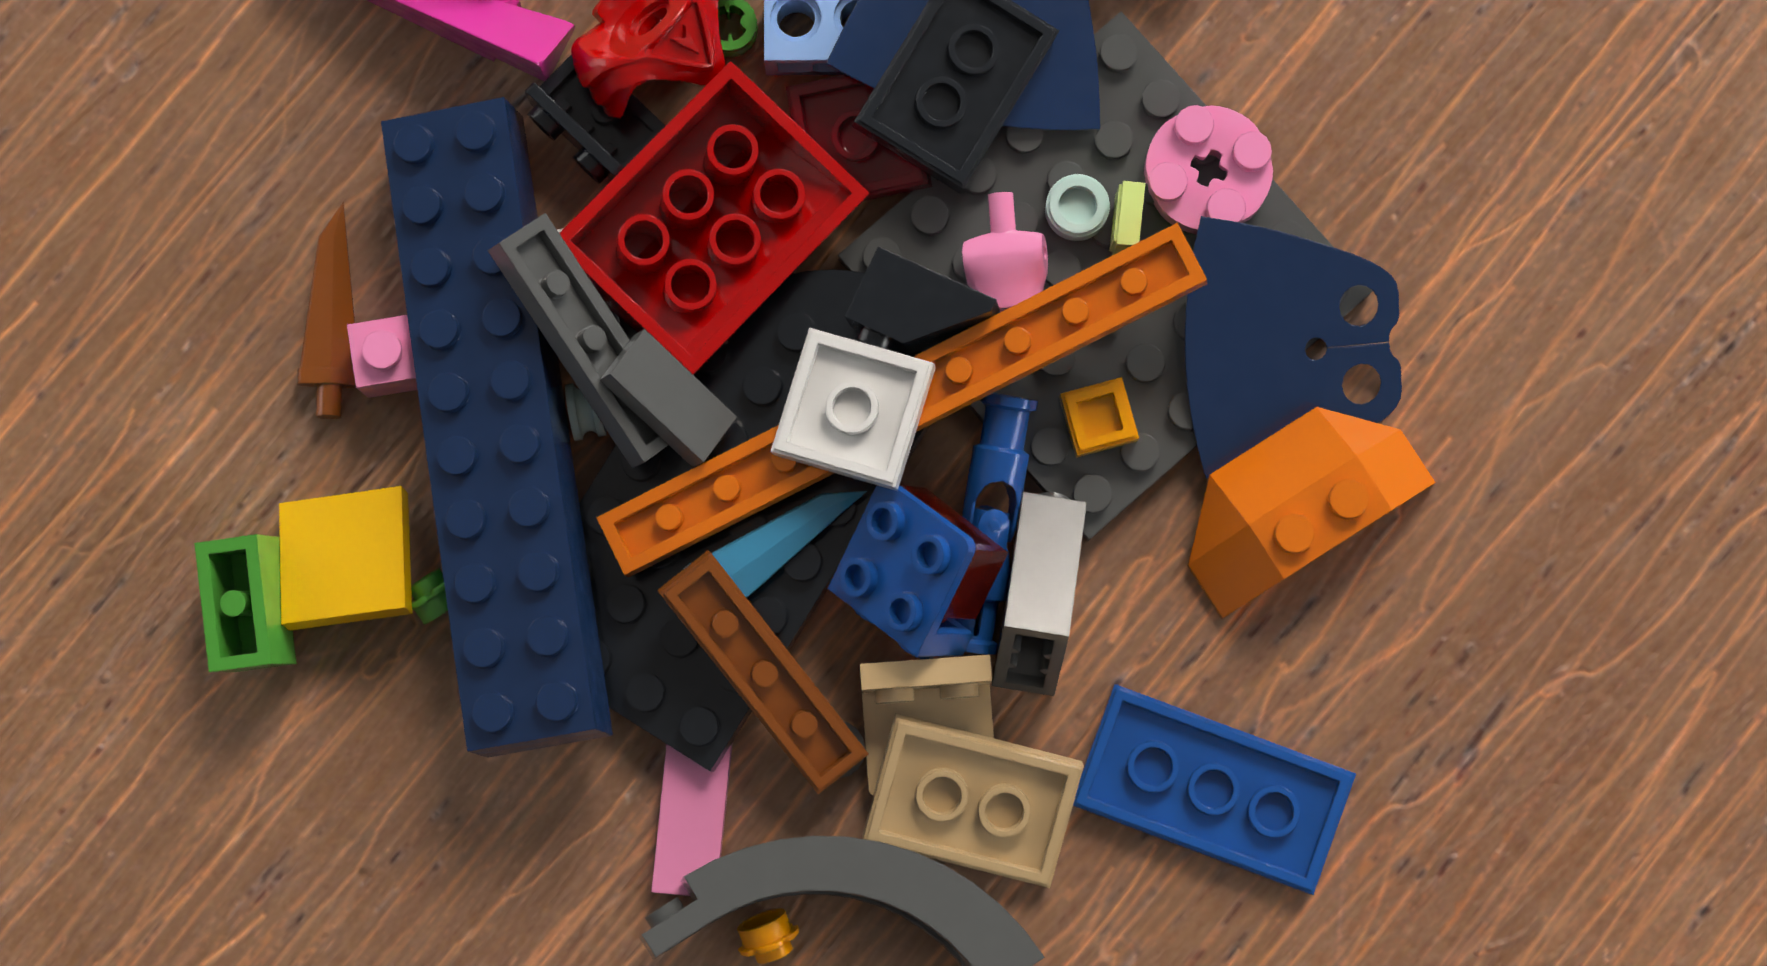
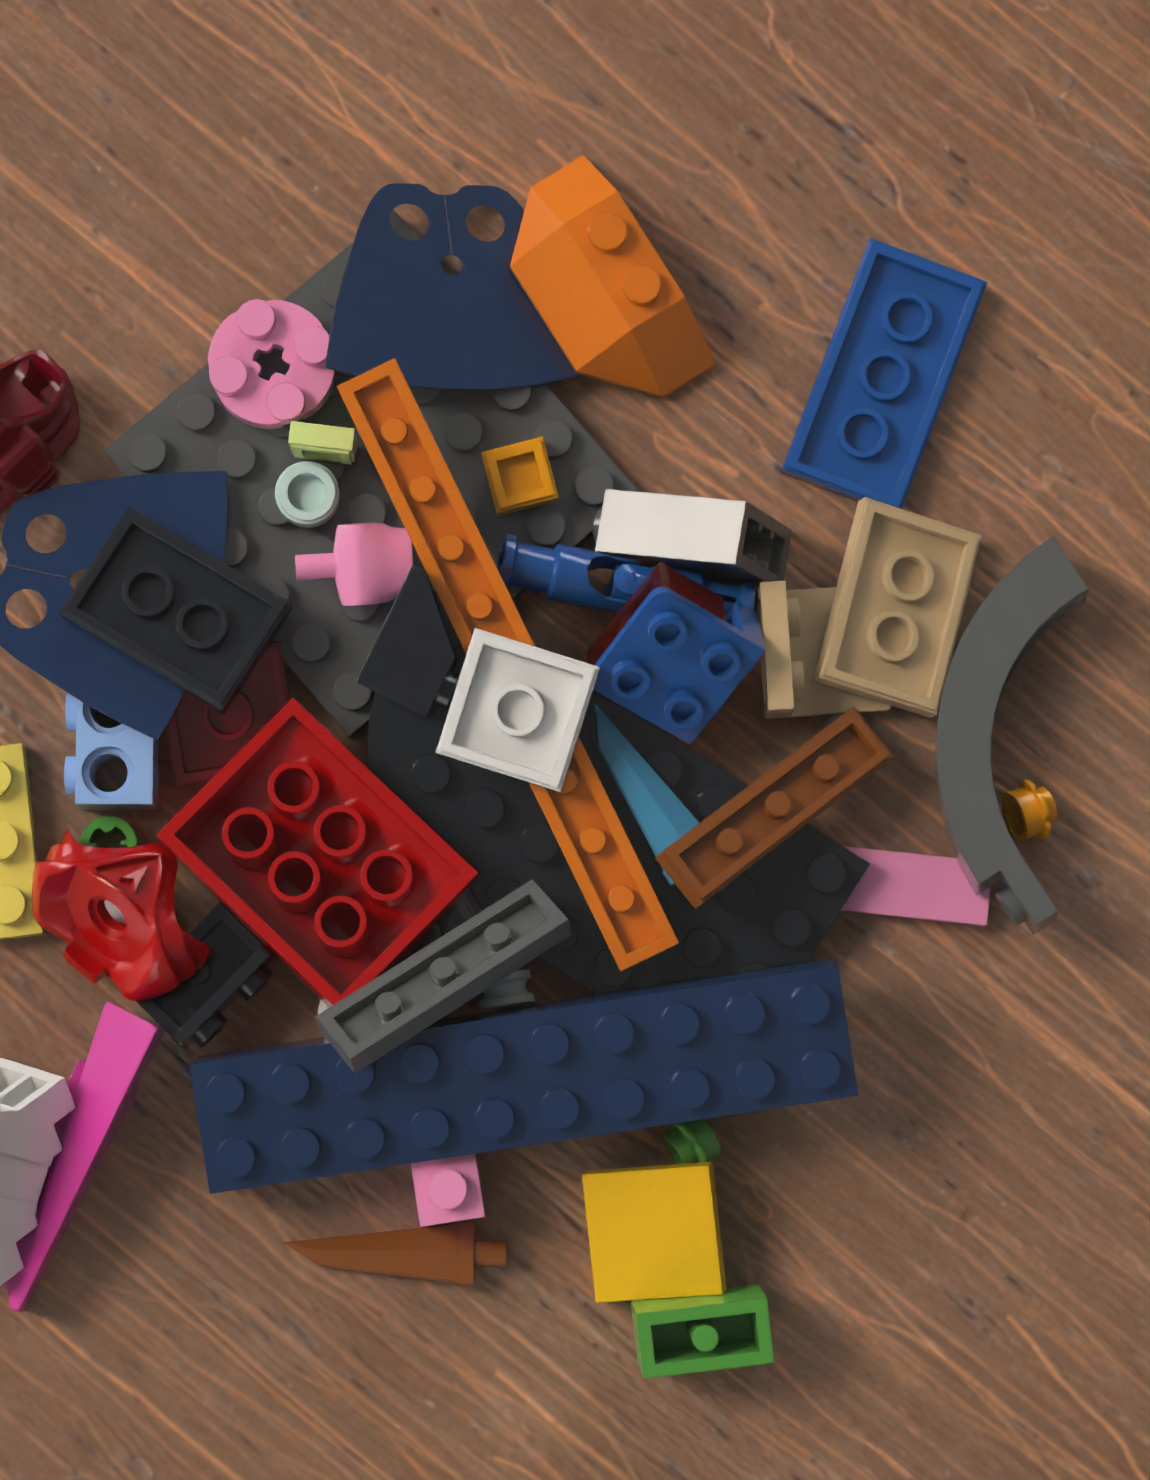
camera: 90 degrees left, 0 degrees up
(668, 398) = (503, 896): dark grey tile -> none

